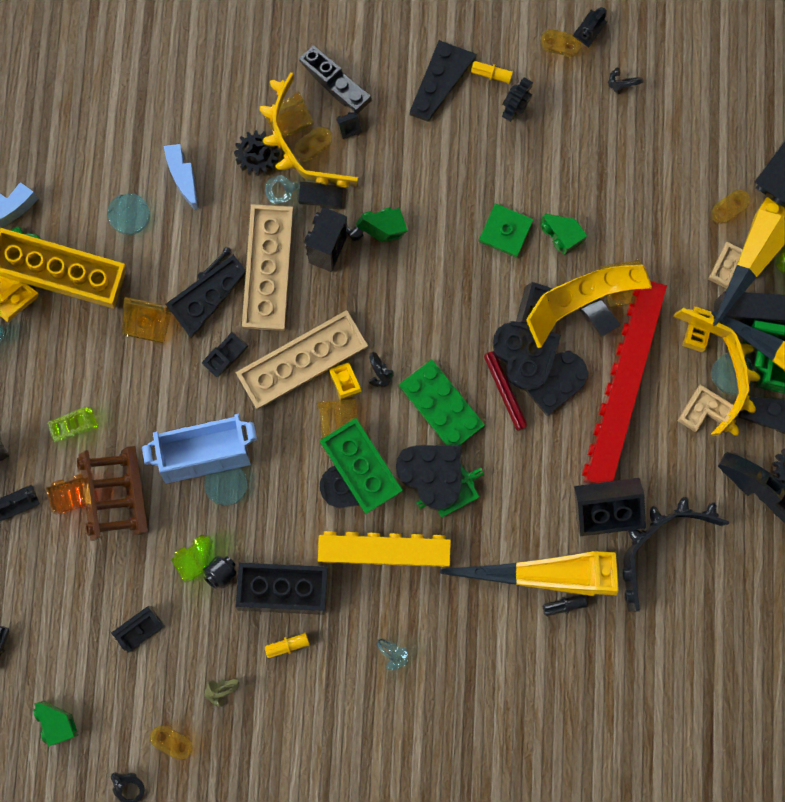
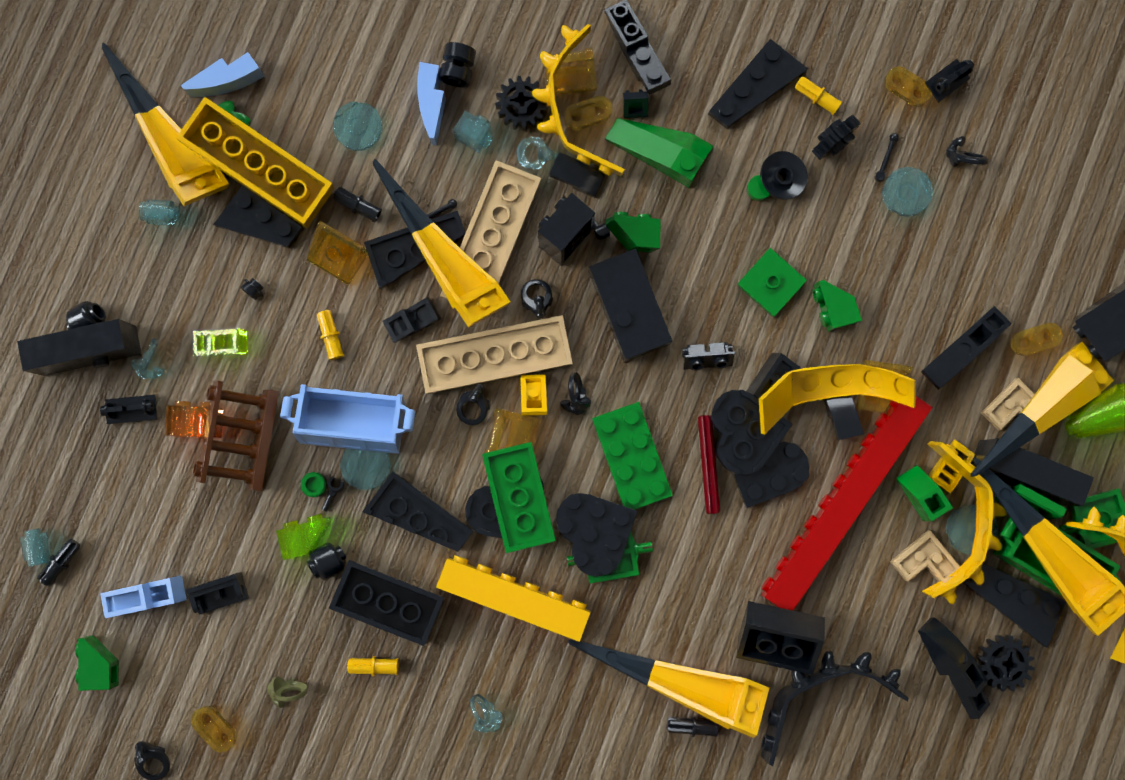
camera: 20 degrees right, 5 degrees up
(13, 464) = (141, 365): none -> clear light blue piece
(67, 313) = (256, 218): none -> black wing
(76, 653) = (143, 596): none -> light blue slope
(85, 371) = (252, 288): none -> black plate
(149, 276) = (357, 204): none -> black axle
(162, 388) = (330, 335): none -> yellow axle
(188, 514) = (313, 484): none -> green tile
(194, 139) = (457, 64): none -> black wheel
(206, 513) = (332, 493): none -> black hand
(225, 188) = (473, 131): none -> clear light blue brick
(256, 307) = (461, 279): none -> yellow plate
(277, 507) = (410, 509): none -> black wing
(298, 397) = (478, 396): none -> black piece
(326, 305) = (538, 304): none -> black piece
(387, 153) = (665, 149): none -> green wedge
(398, 284) = (629, 305): none -> black brick
(470, 159) = (756, 189): none -> green tile
(484, 302) = (719, 356): none -> black hinge
(487, 135) = (792, 171): none -> black dish
(563, 119) = (880, 175): none -> black hinge
(588, 124) = (907, 191): none -> clear light blue tile
(677, 231) = (966, 347): none -> black slope
(684, 356) = (923, 494): none -> green slope

